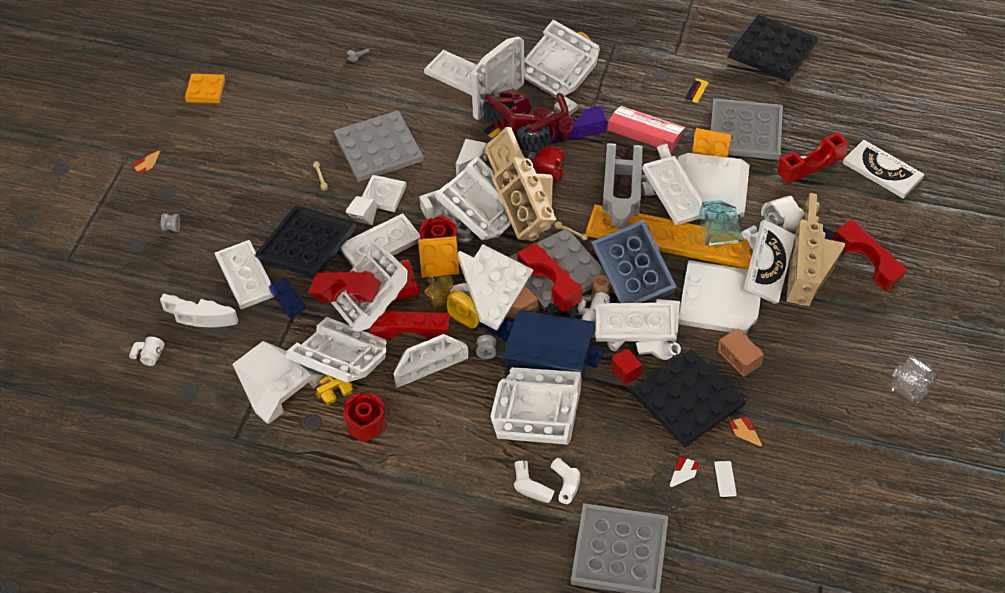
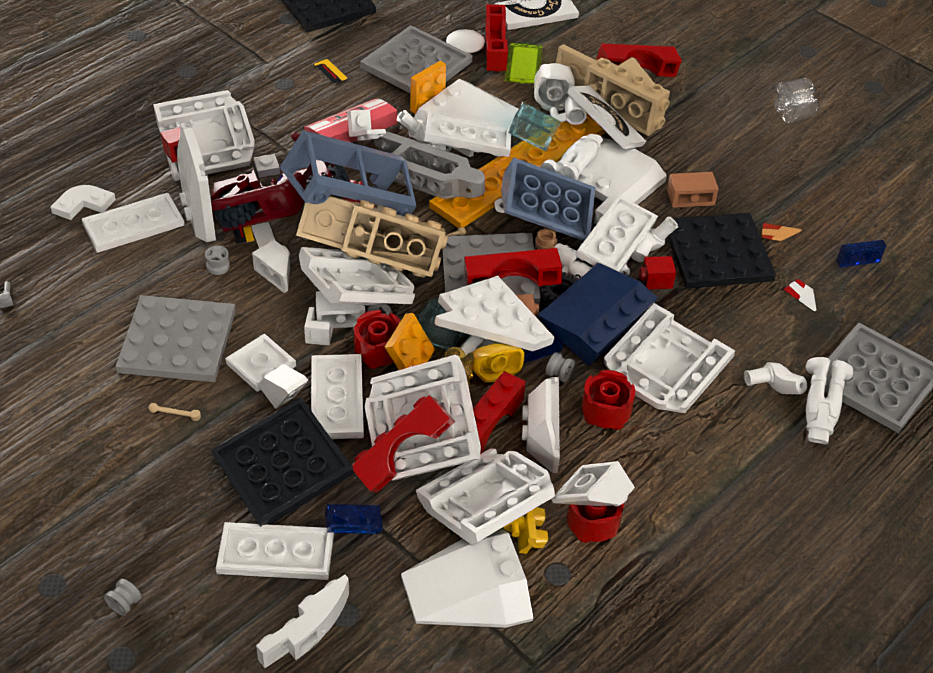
camera: 65 degrees left, 5 degrees down
(363, 400) = (596, 486): none -> white slope
(455, 128) = (217, 260): none -> light grey wheel
(460, 38) = (82, 196): none -> white plate
(469, 384) = (608, 399): none -> red brick
(528, 487) = (764, 413): white arm -> none
(533, 51) = (170, 142): none -> red brick
(552, 520) = (820, 411): none -> white piece
(592, 162) = (381, 164): none -> sand blue windscreen
(634, 131) = (360, 125): none -> white bracket
(698, 262) = (576, 157): none -> white piece
(725, 478) = (826, 270): white sticker -> none
(759, 496) = (861, 253): none -> clear blue plate
(799, 143) = (466, 40): none -> white dish
(817, 184) = (523, 62): none -> clear neon green piece

